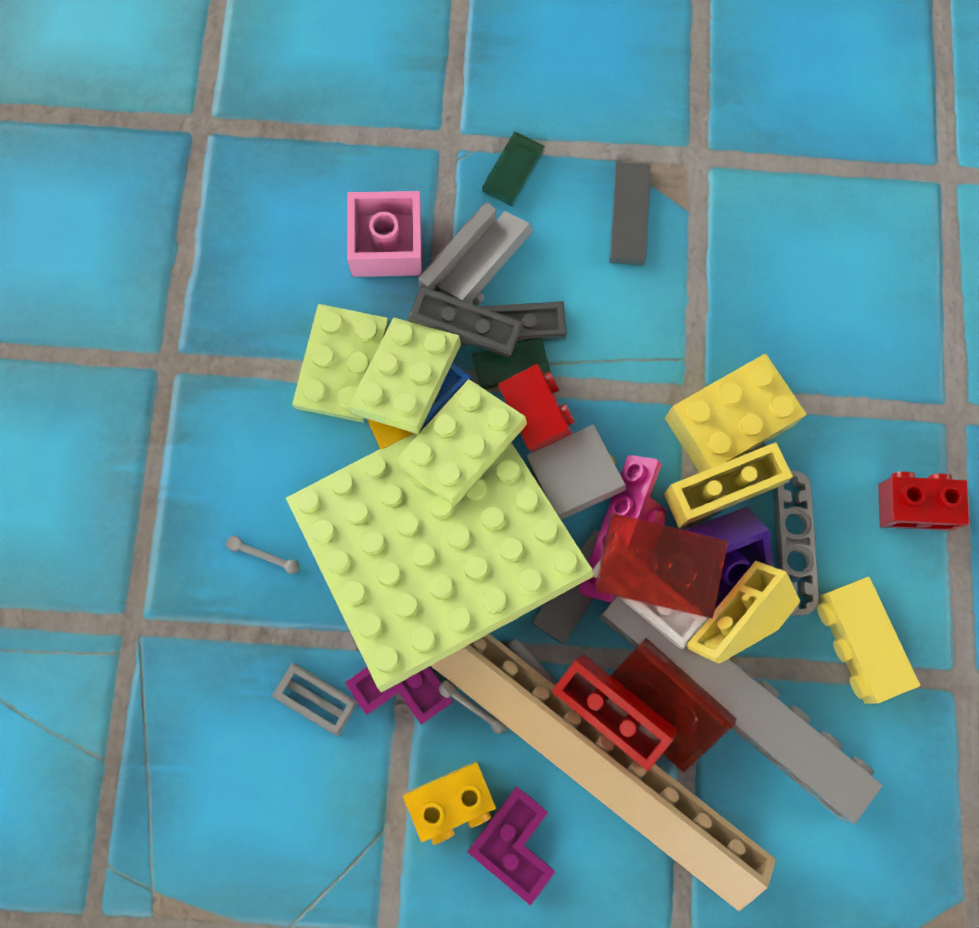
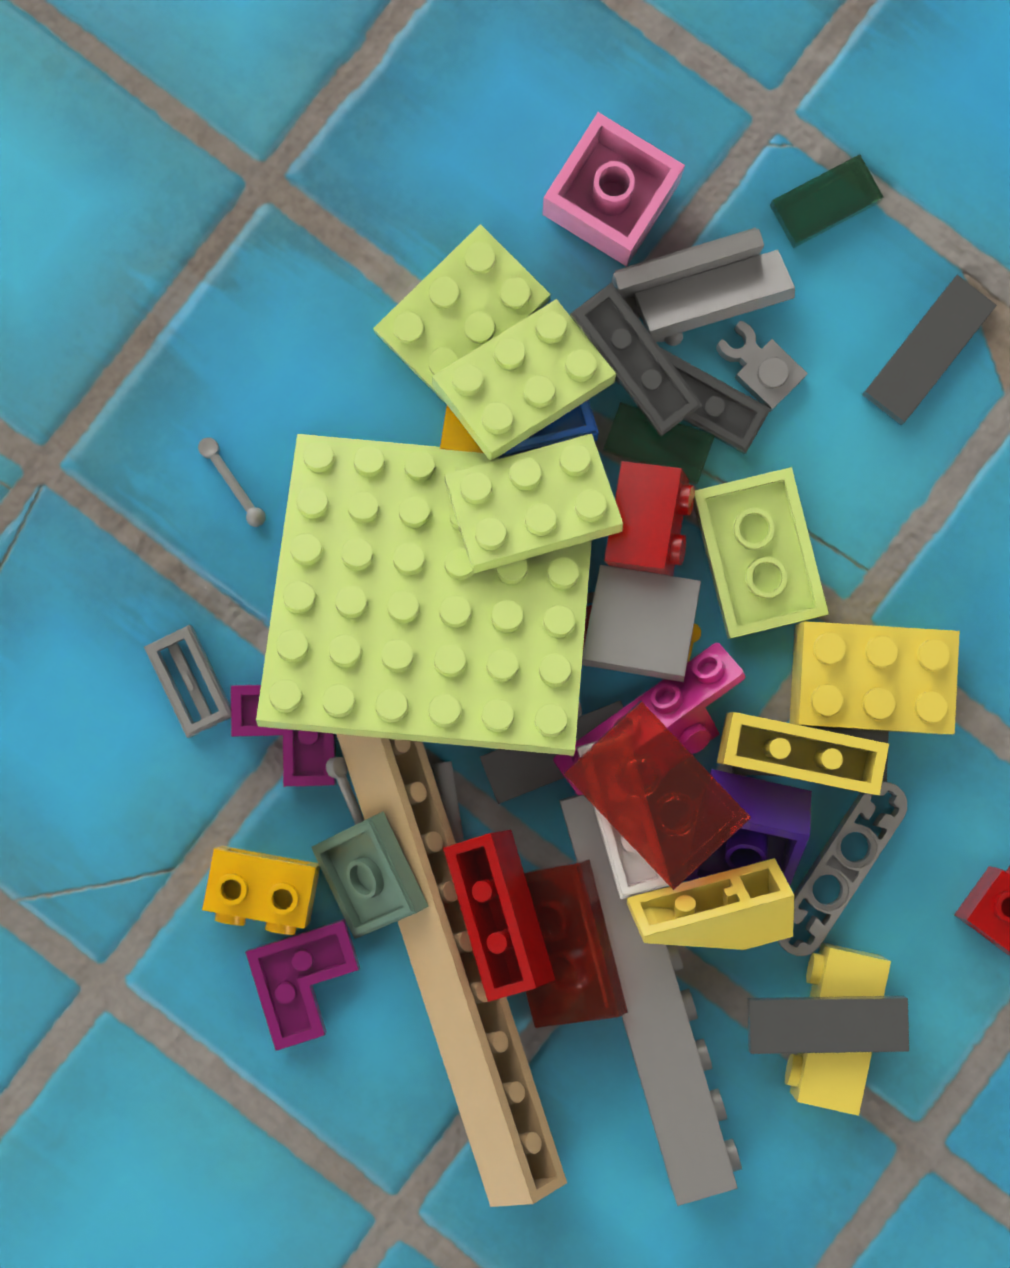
camera: 40 degrees right, 10 degrees up
(515, 744) = (369, 876): none -> sand green tile
(546, 282) = (766, 372): none -> light grey plate
(616, 388) = (760, 553): none -> yellowish green plate
(861, 640) = (828, 1024): none -> dark grey tile

